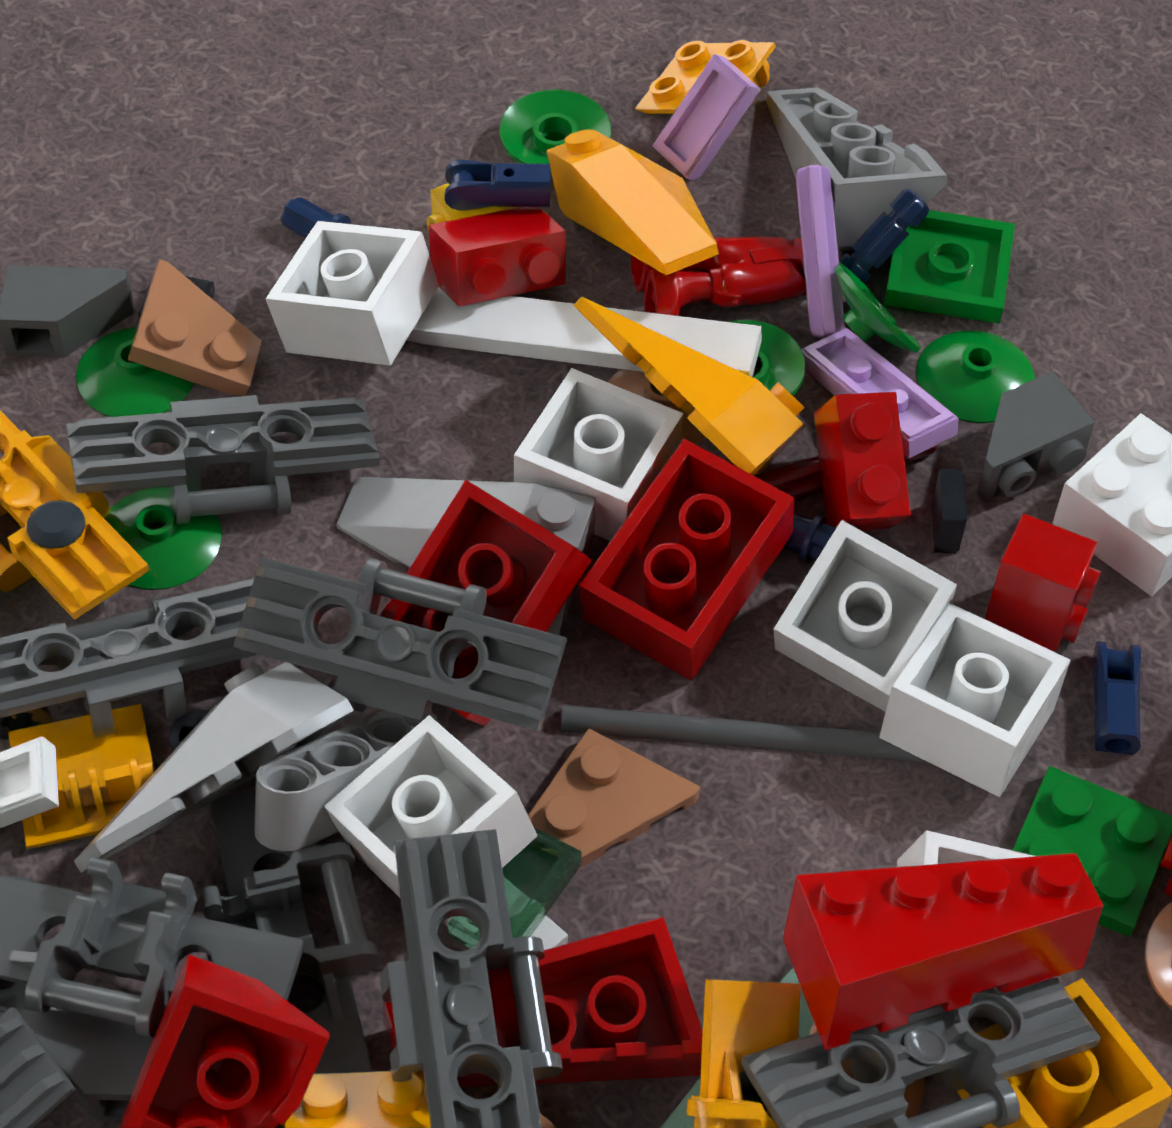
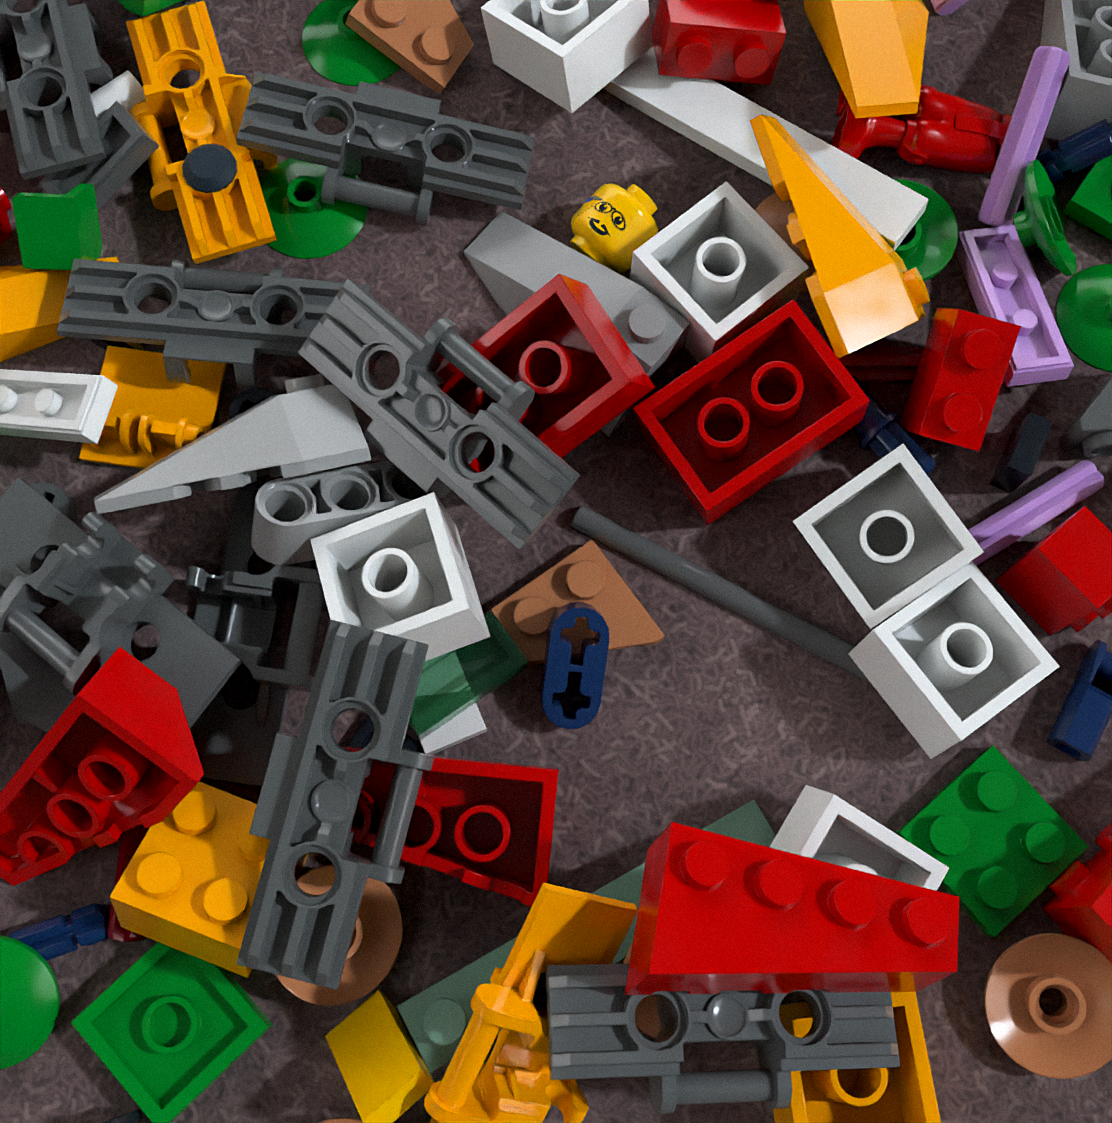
camera: 25 degrees right, 20 degrees up
(478, 445) = (614, 225): none -> yellow head
(643, 837) = (589, 667): none -> dark blue beam
(986, 552) = (1036, 508): none -> lavender axle

